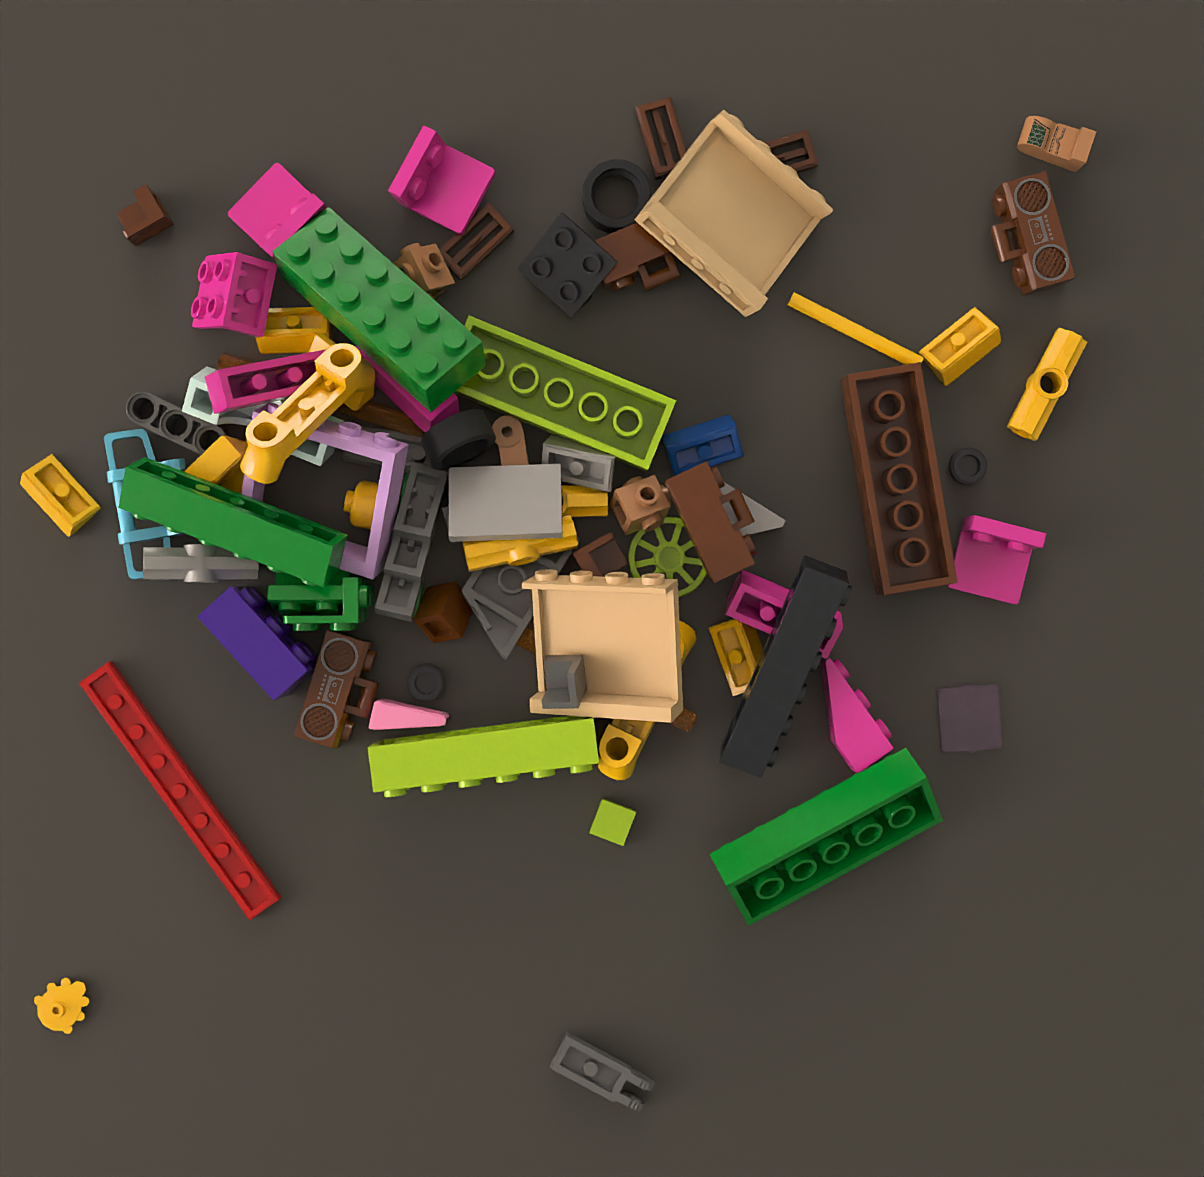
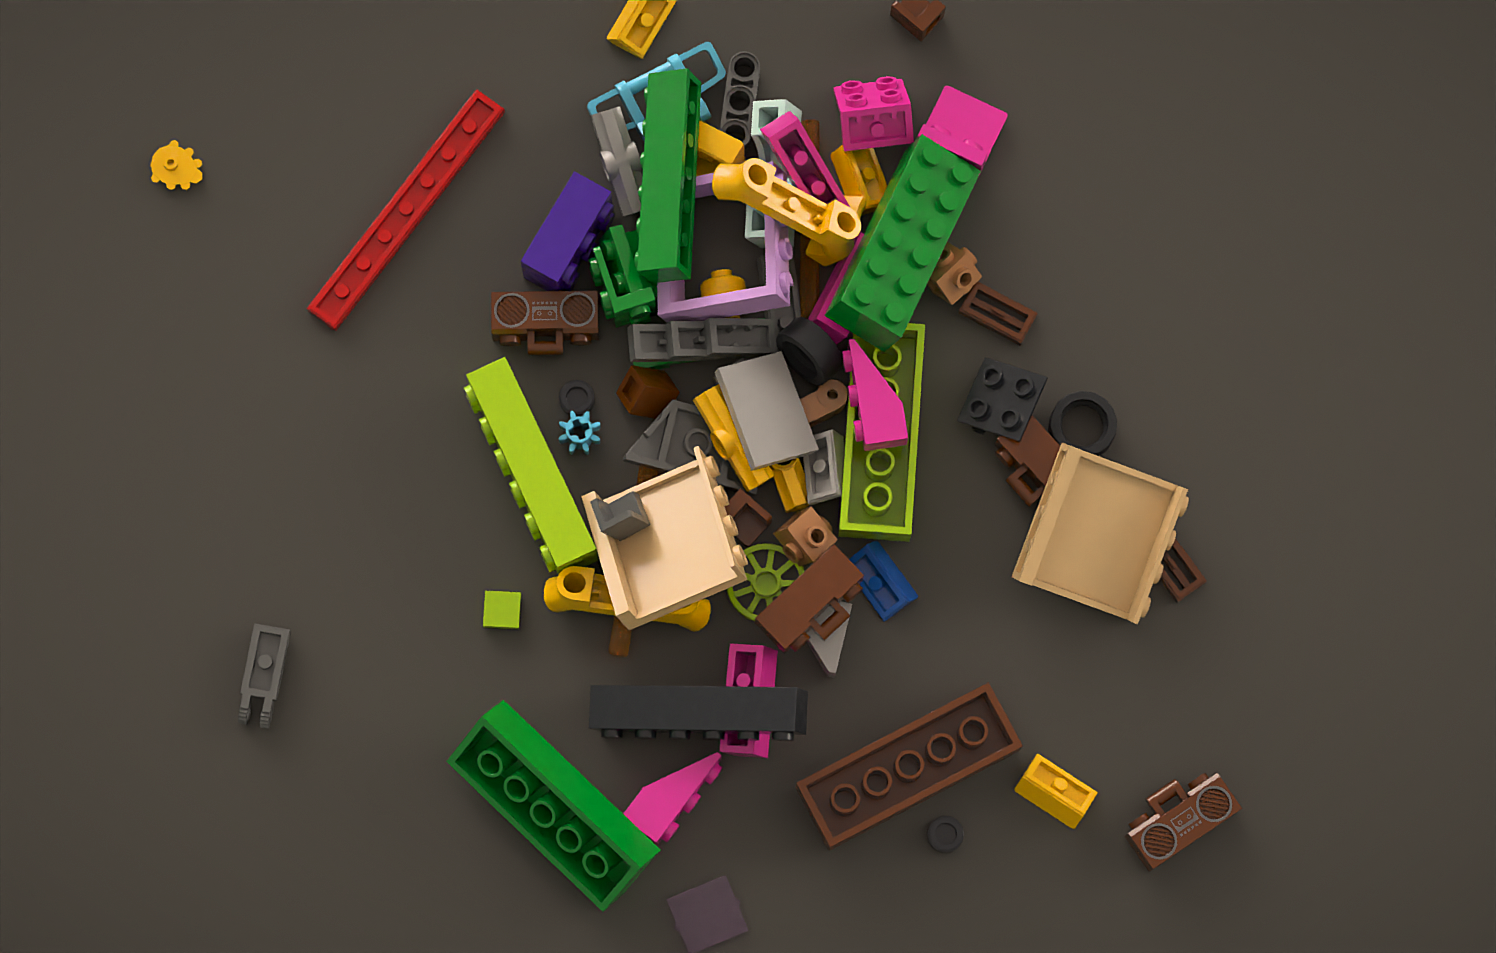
camera: 70 degrees right, 10 degrees down
(400, 715) = (538, 377): bright pink slope -> none
(441, 182) = (1039, 264): dark pink bracket -> none
(455, 700) = (586, 426): none -> medium azure gear
(543, 390) = (878, 407): none -> dark pink slope
(653, 106) = (1121, 457): reddish brown tile -> none
(738, 652) = (703, 669): yellow slope -> none
(853, 330) = (1036, 687): yellow bar -> none
(994, 558) = (864, 884): dark pink bracket -> none
(1056, 142) = (1276, 815): medium nougat leg -> none
(1056, 364) = (1070, 883): yellow piece -> none

